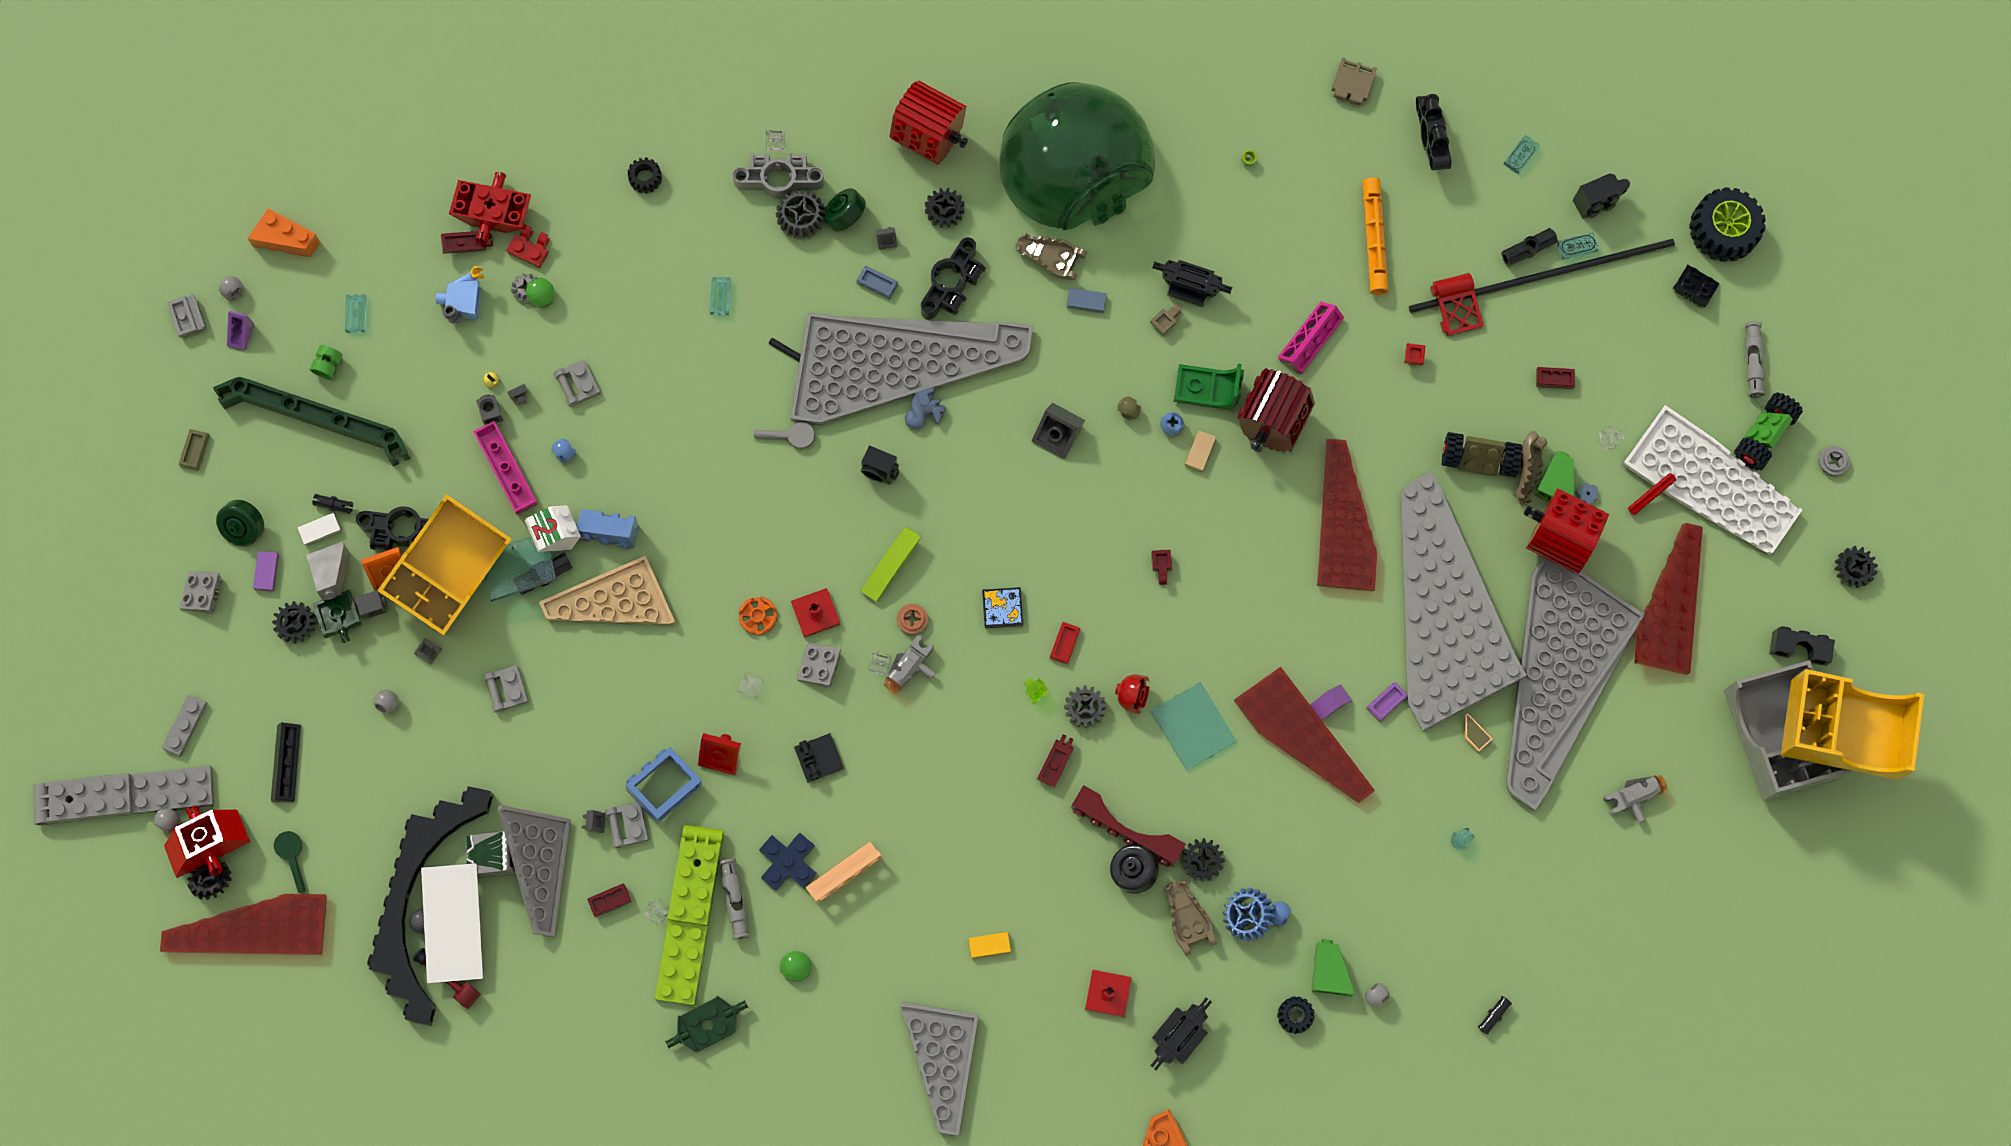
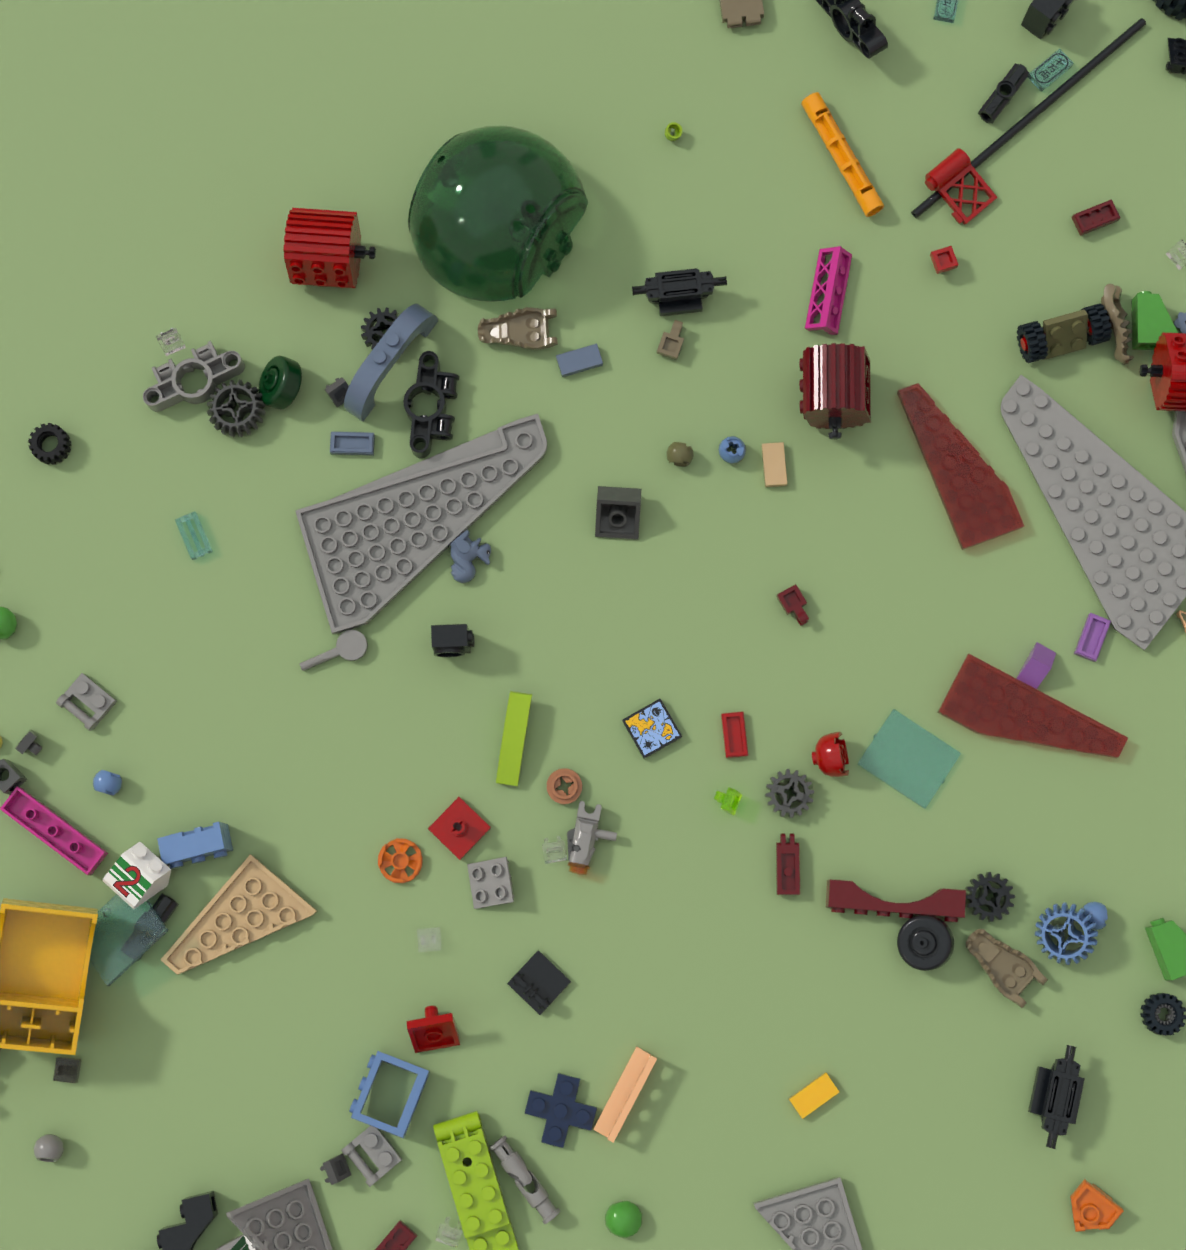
camera: 20 degrees left, 5 degrees up
(512, 686) = (176, 1064): light grey plate -> none
(785, 349) = (289, 560): black bar -> none
(933, 225) = (362, 389): none -> sand blue arch
(1108, 993) = (960, 1086): red tile -> none
(1209, 386) = (752, 392): green bracket -> none

